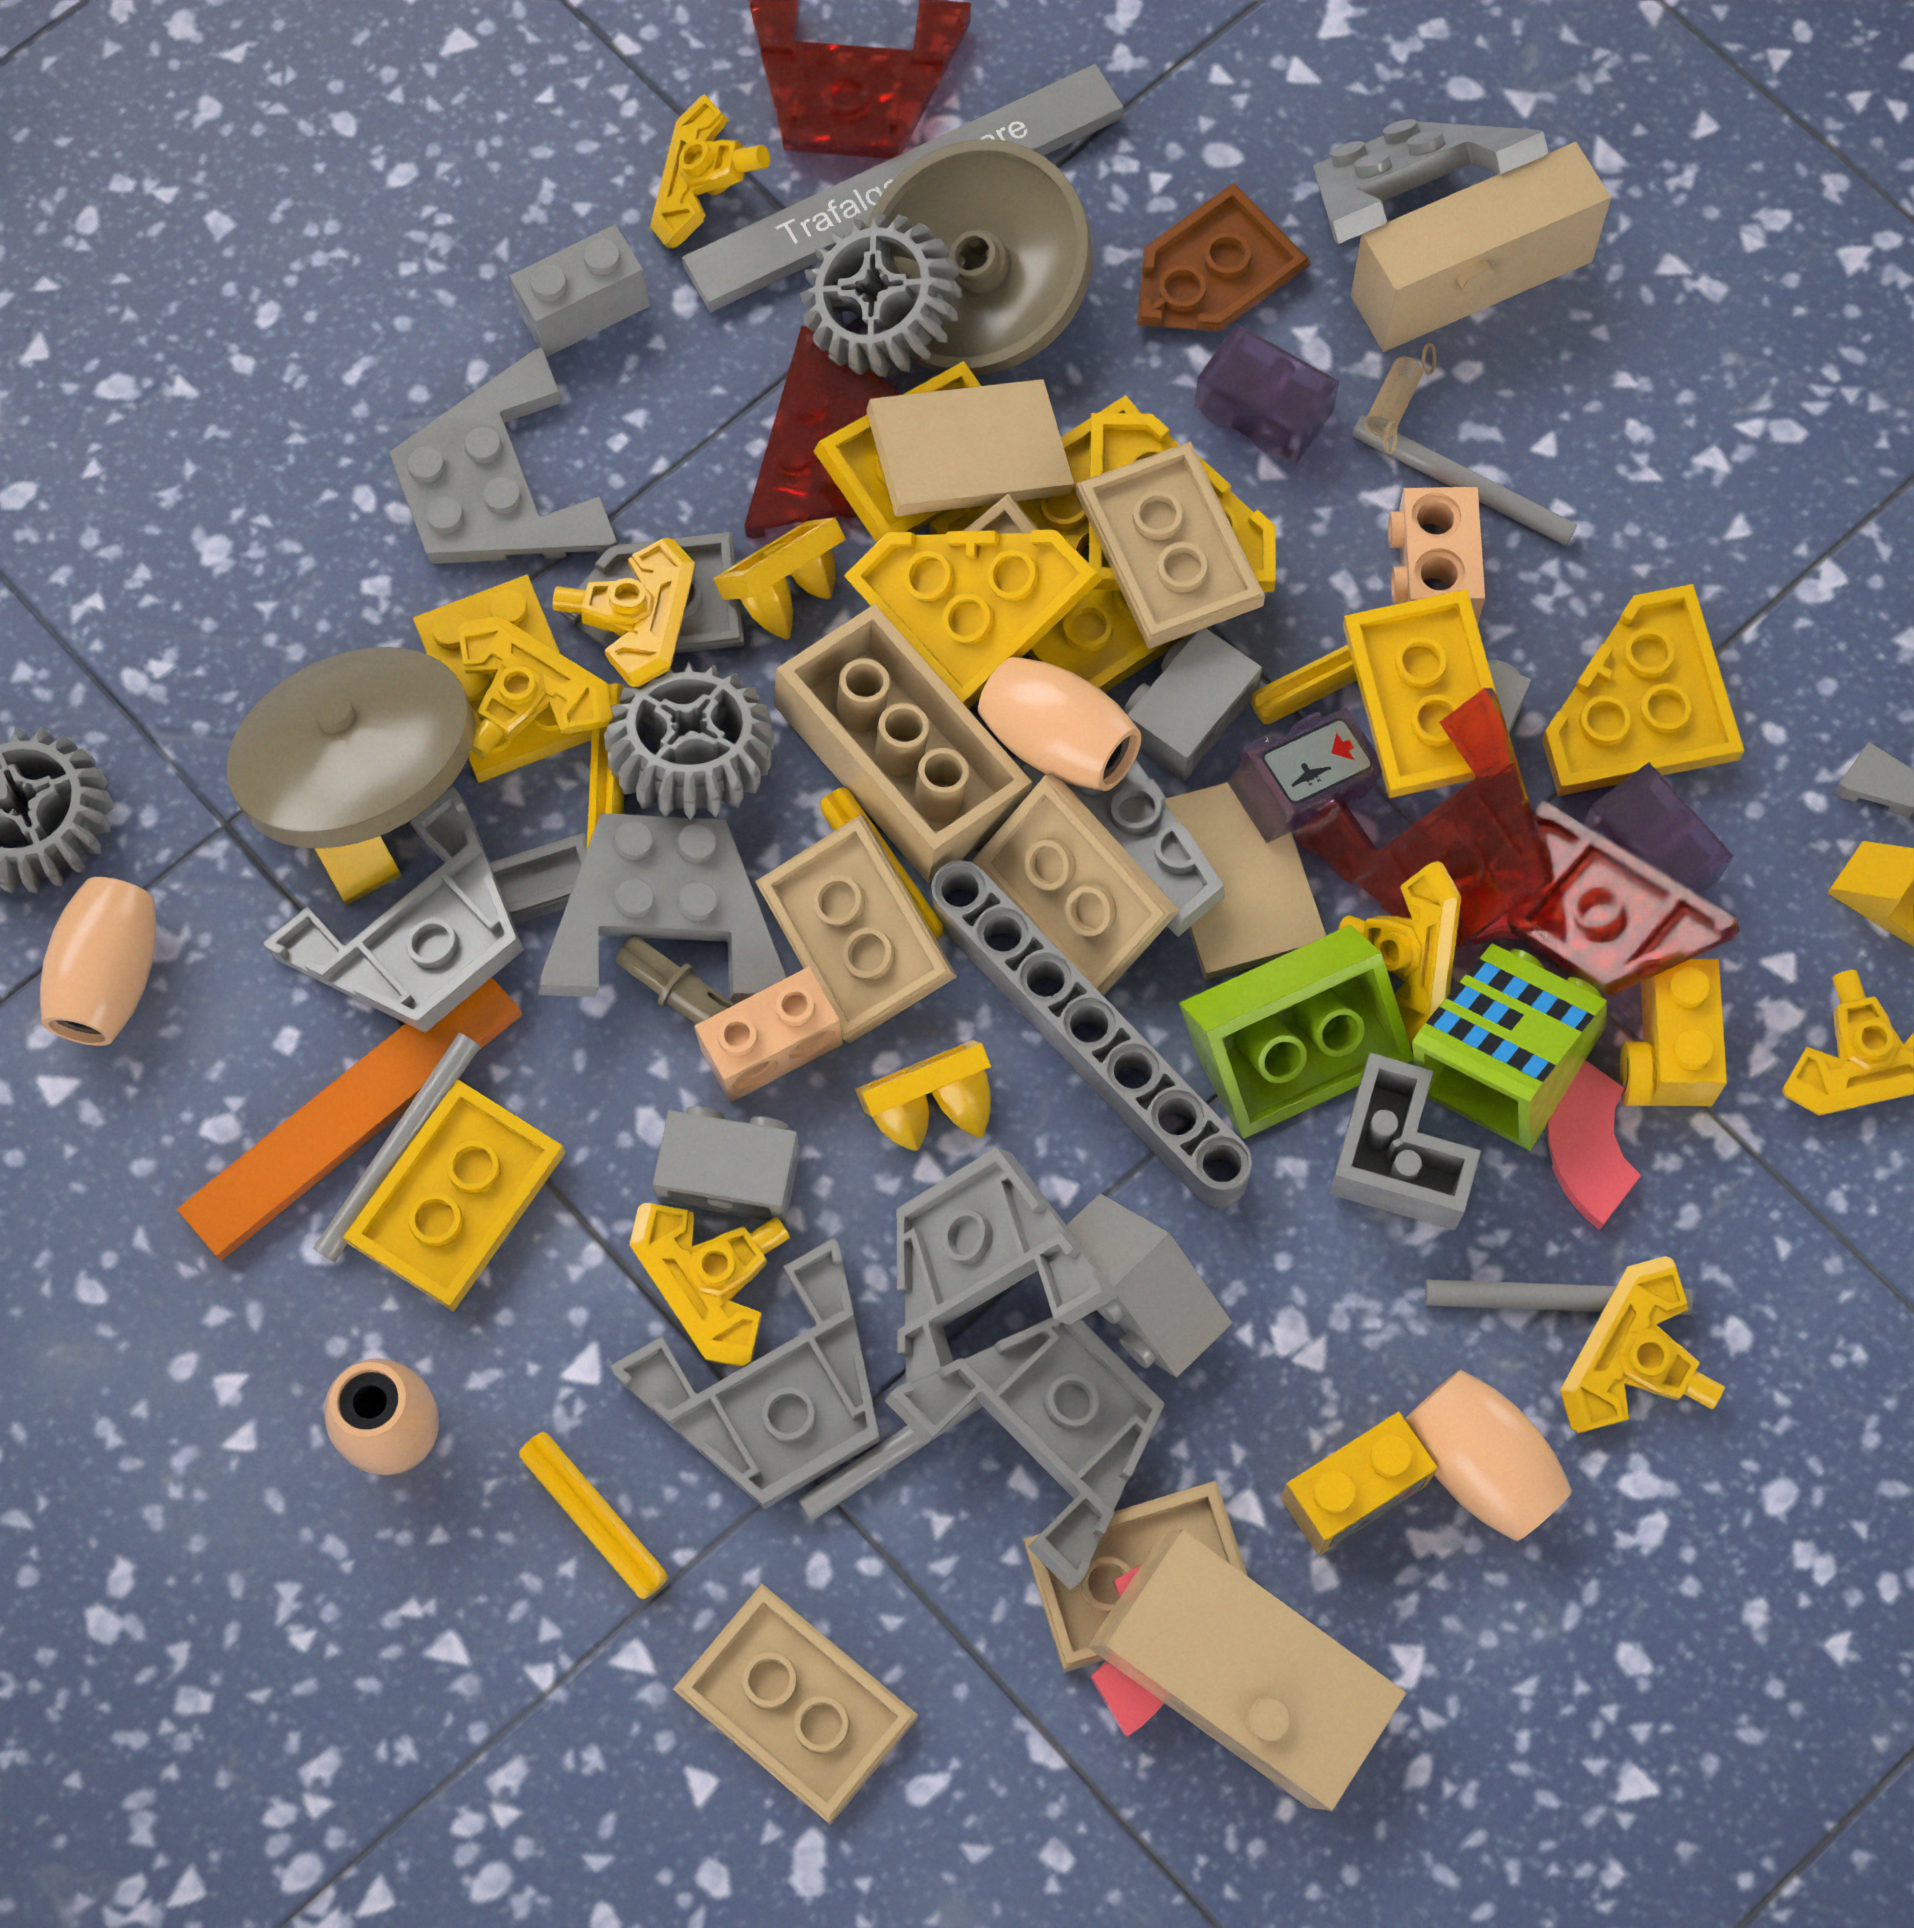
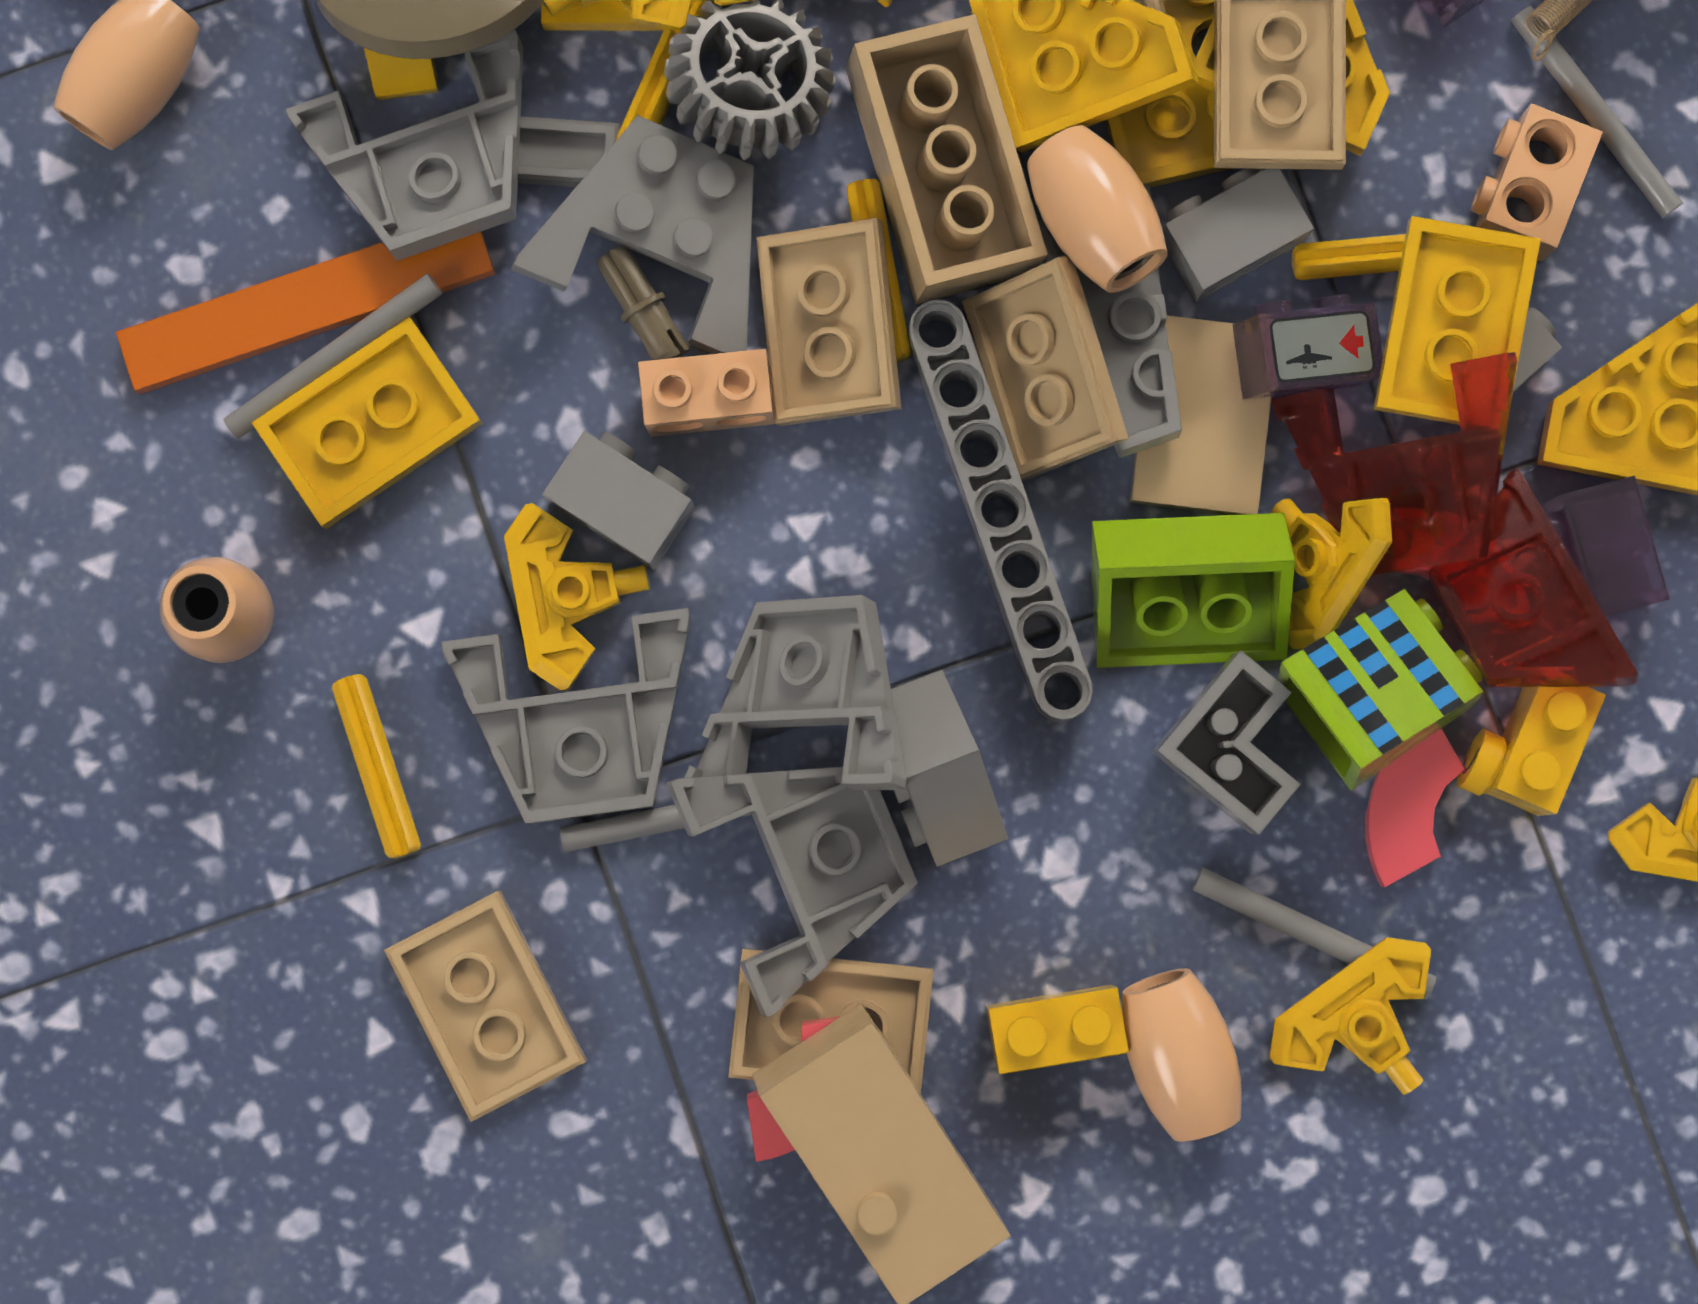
camera: 25 degrees right, 15 degrees up
(953, 1077) = (856, 498): yellow tile -> none

